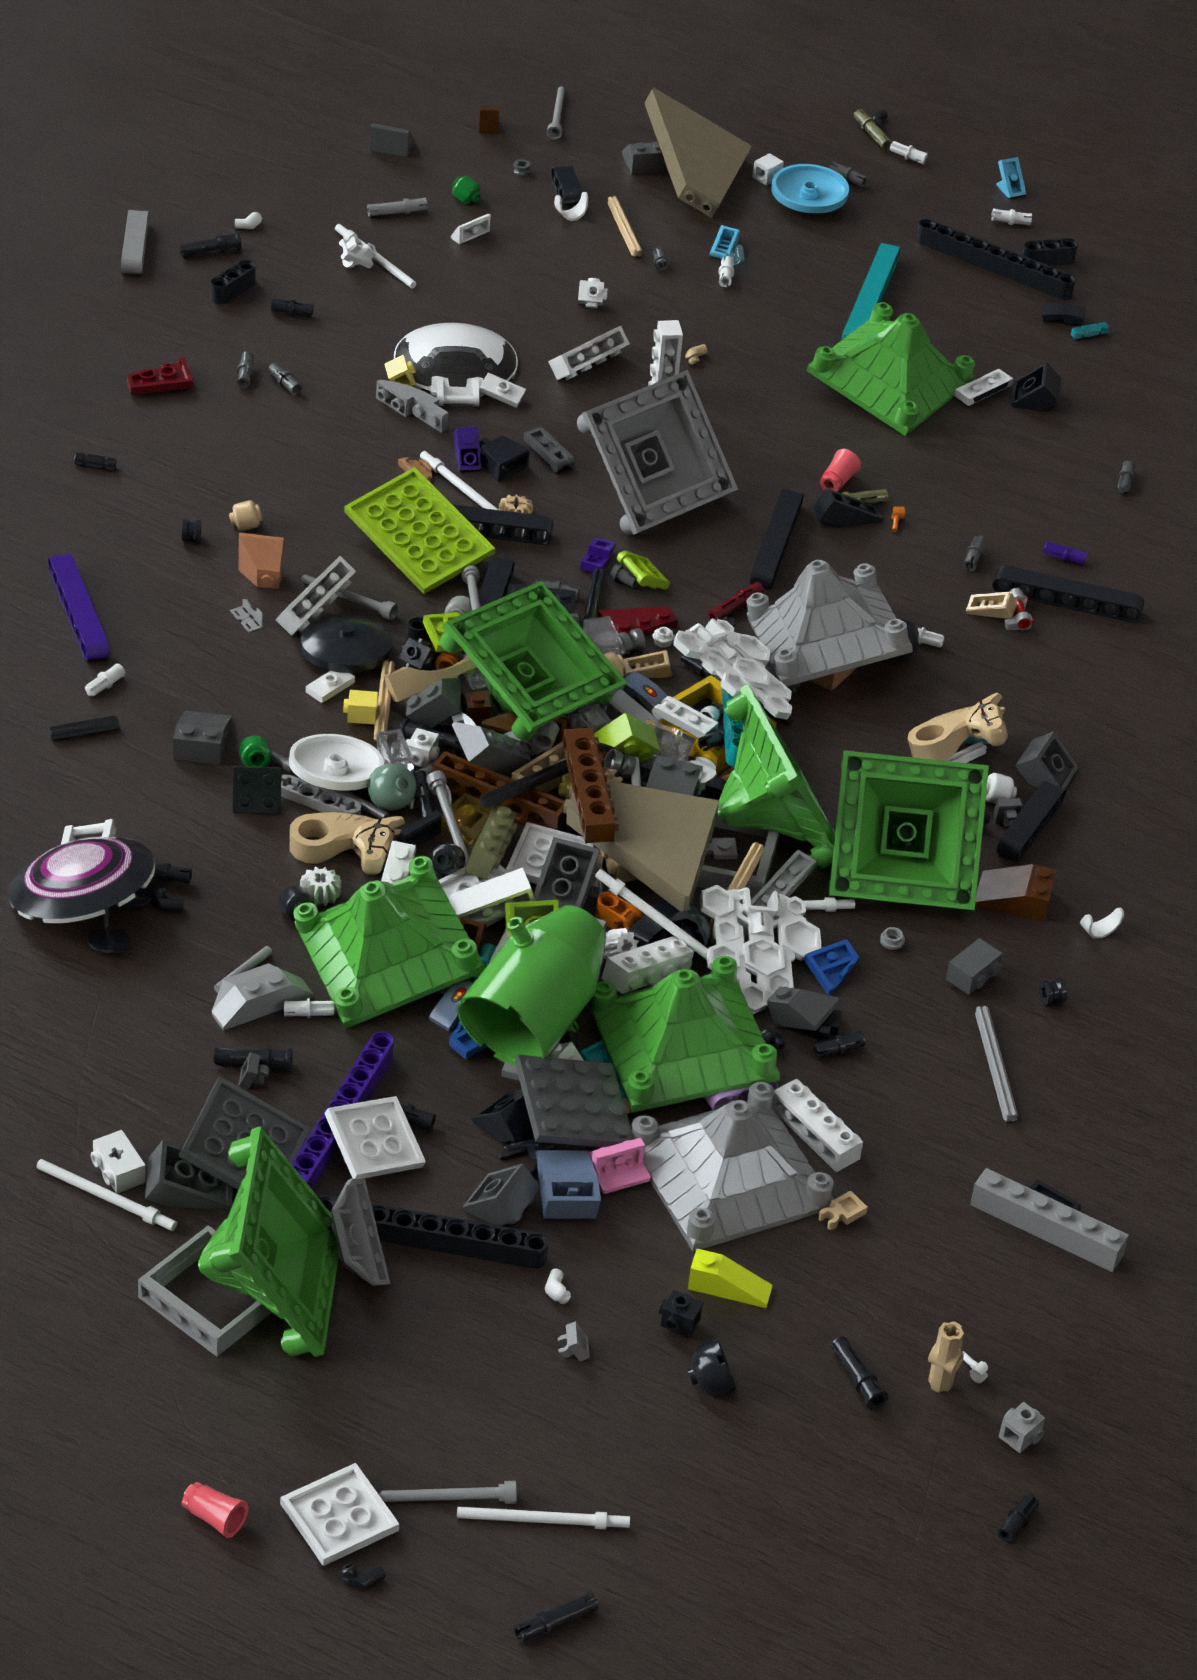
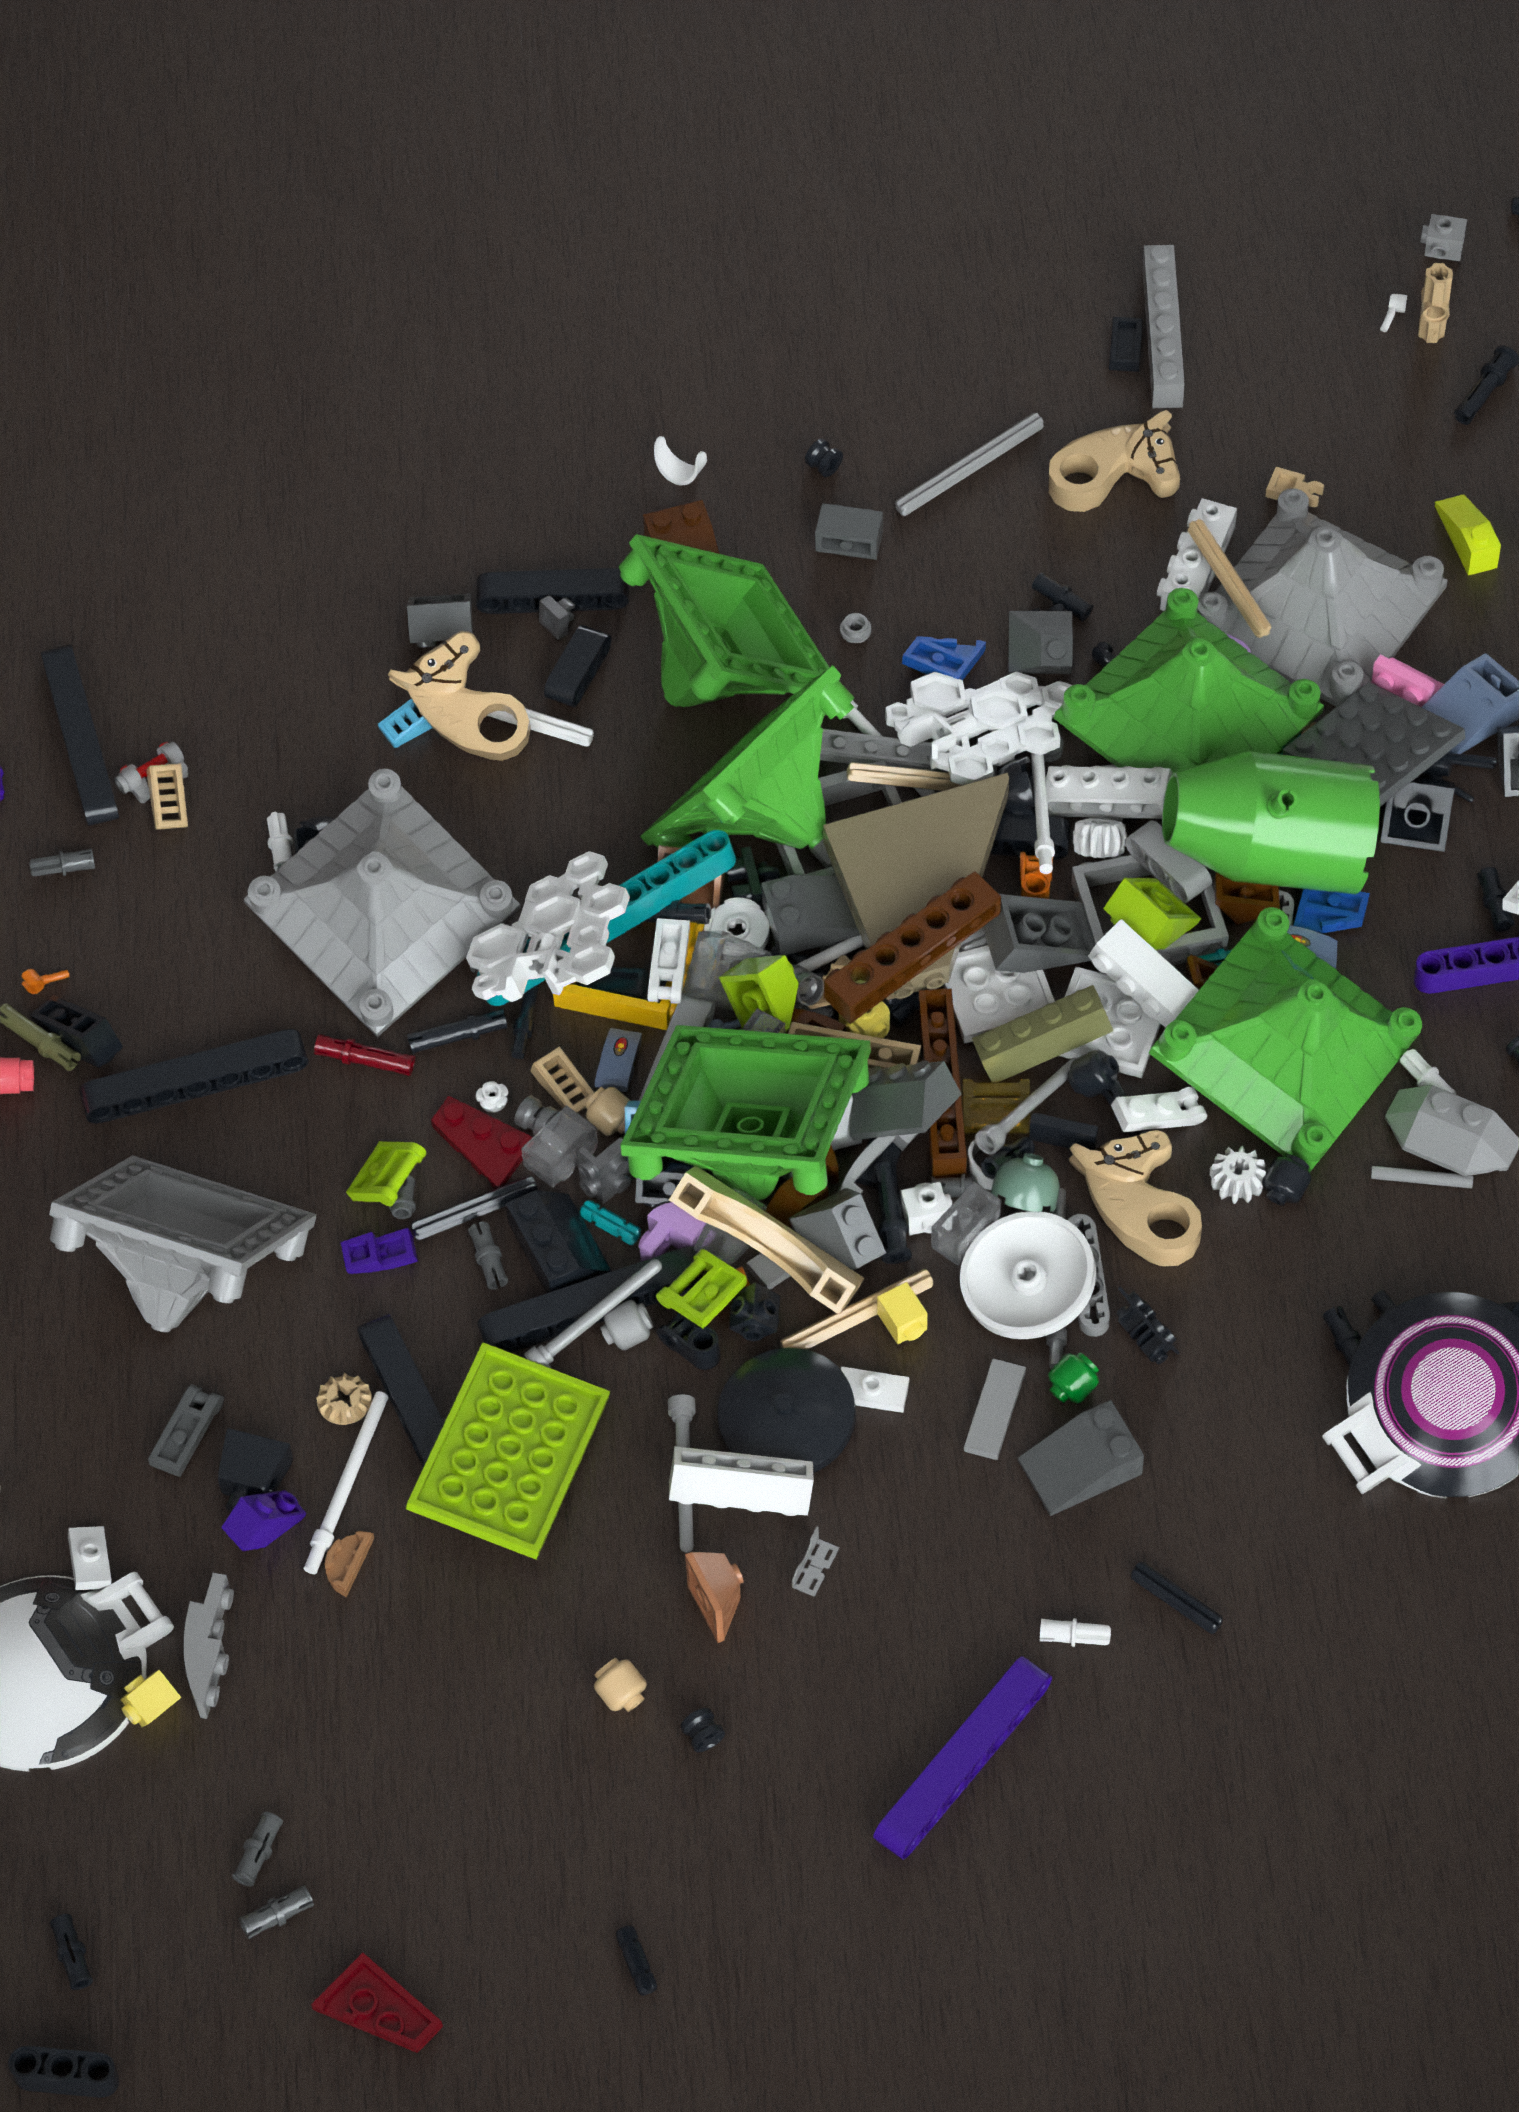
camera: 115 degrees left, 15 degrees up
(270, 721) = (994, 1409): none -> light grey tile
(524, 784) = (930, 1040): black axle -> none
(712, 712) = (642, 940): white hinge -> none
(773, 1101) = (1229, 578): none -> tan axle
(943, 1132) = (1108, 454): none -> tan animal
(1000, 787) = (523, 640): white head -> none

